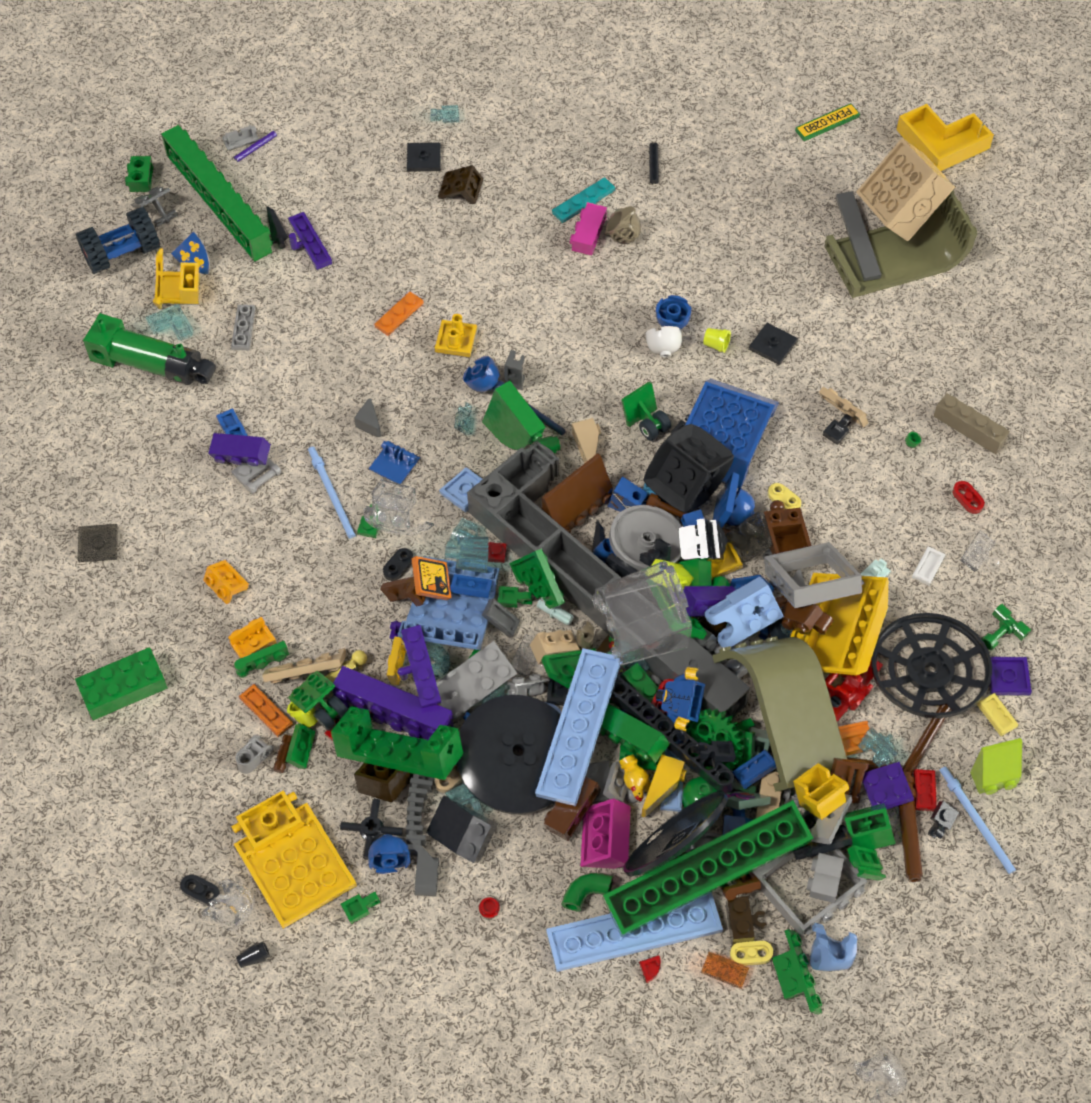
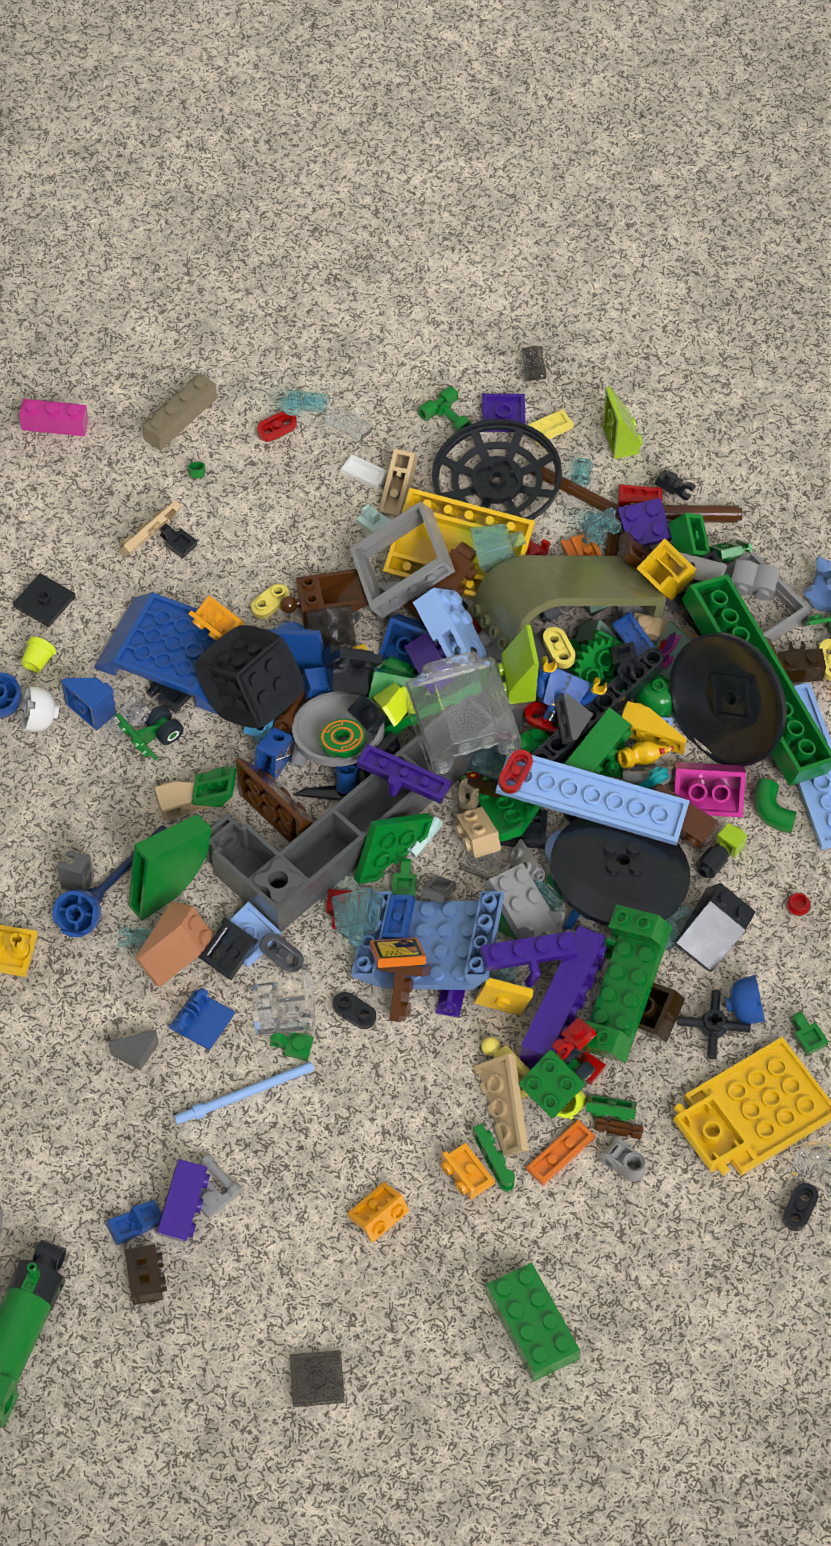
camera: 90 degrees left, 0 degrees up
(188, 432) = (144, 1274): none -> dark brown brick
(345, 705) = (576, 1036): none -> red plate
(427, 866) = (762, 963): dark grey piece -> none
(446, 509) = (281, 952): none -> black plate
(447, 477) = (233, 952): none -> black plate
(453, 434) = (173, 942): none -> nougat slope
(458, 532) = (318, 944): clear light blue piece -> none
(531, 835) = (712, 861): none -> black brick
(552, 852) = (732, 838): none -> lime plate
(587, 450) = (214, 787): none -> green slope
(590, 574) = (403, 774): none -> dark purple plate
(596, 658) = (515, 773): none -> red plate
(603, 780) = (657, 776): none -> teal plate
(634, 527) = (342, 728): none -> green tile
(652, 704) = (571, 717): none -> dark grey slope
(668, 403) = (134, 711): none -> clear plate
(669, 372) = (90, 700): none -> blue slope
(695, 656) = (520, 668): none -> lime slope
(724, 696) = (560, 649): none -> light yellow plate
(745, 444) = (215, 618): none -> light orange bracket
(828, 642) = (495, 544): none -> clear light blue torso
(920, 589) = (398, 481): none -> tan slope
(947, 740) = (582, 471): none -> clear light blue bush
(952, 336) = (53, 417): none -> dark pink brick
(954, 786) = (633, 471): light blue bar -> none
(998, 513) = (295, 401): none -> clear light blue brick
(1068, 700) = (533, 363): none -> clear smoke bracket

